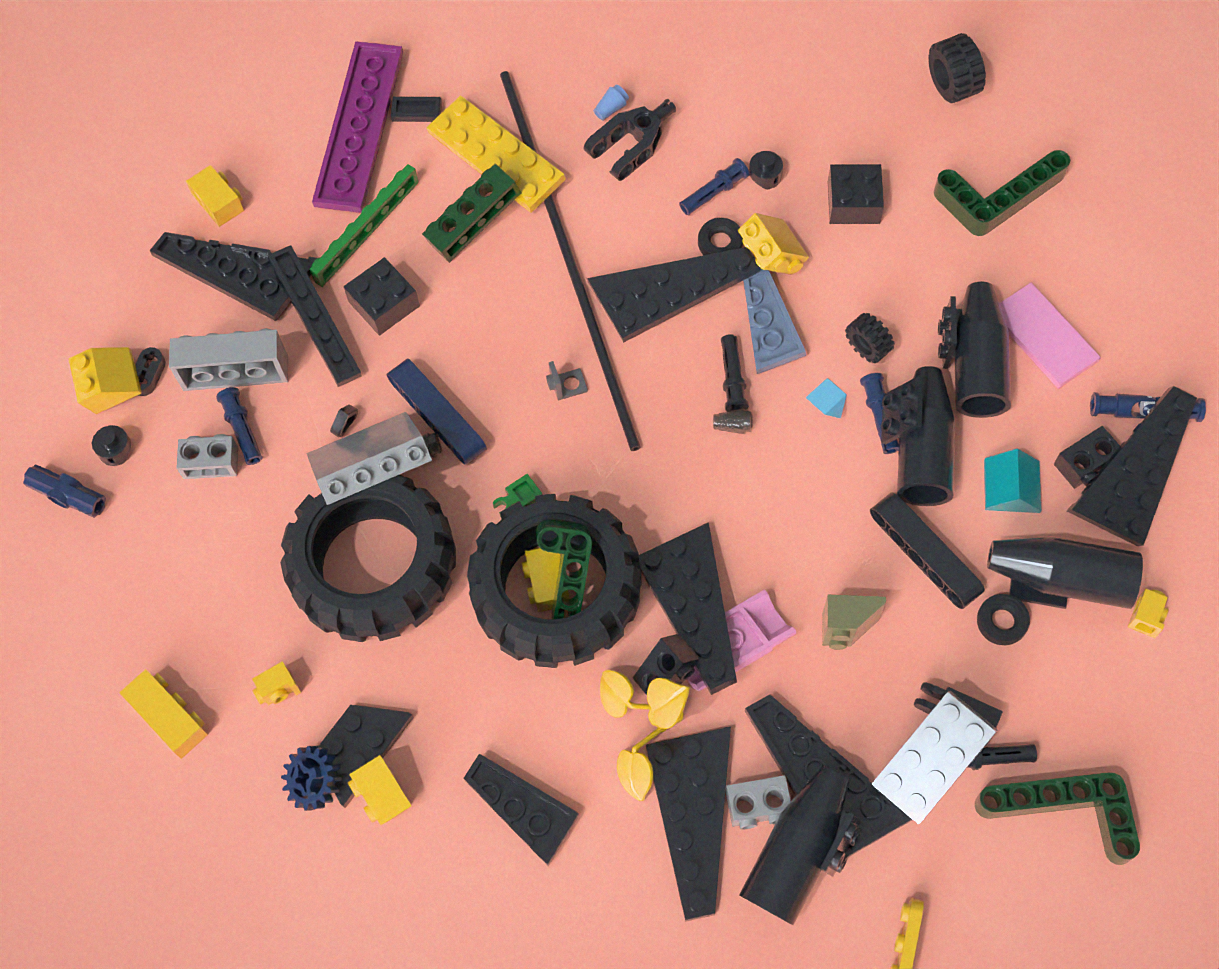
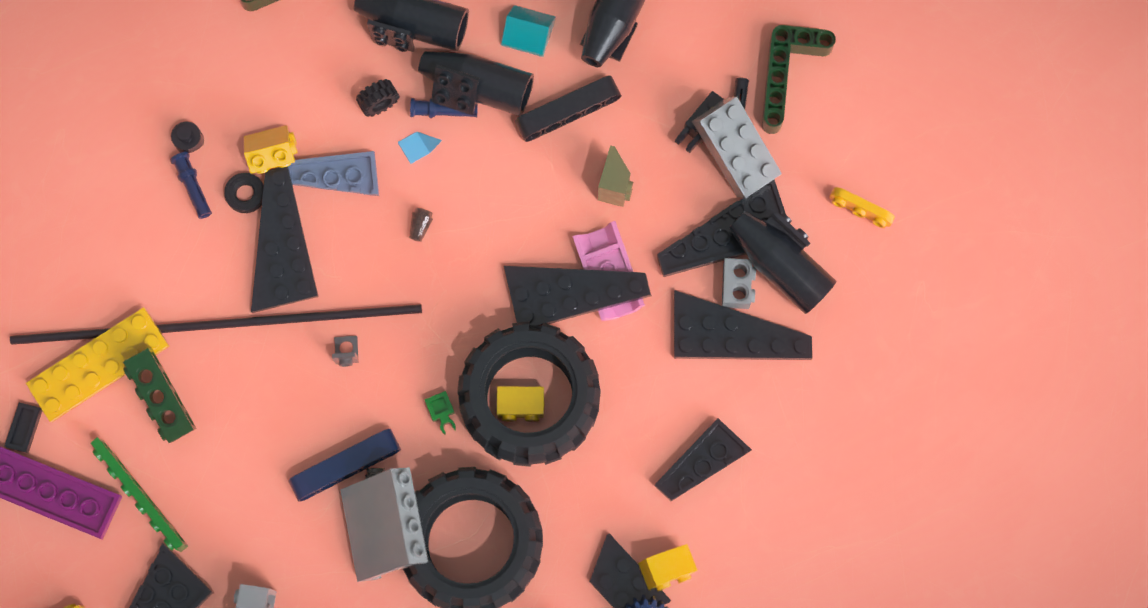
camera: 80 degrees left, 10 degrees up
(314, 316) = (222, 554): black plate -> none
(343, 420) = (332, 545): black tile -> none
(381, 296) = (219, 491): black brick -> none
(569, 553) = (519, 369): dark green beam -> none
(611, 102) = (75, 251): medium blue cone -> none
(633, 123) = (103, 239): black piece -> none
(666, 708) = (657, 328): yellow plant -> none
(669, 659) = (621, 325): black brick -> none
(734, 383) = (385, 215): black pin -> none
(855, 194) = (236, 72): black brick -> none
(1013, 606) = (636, 83): black tyre -> none

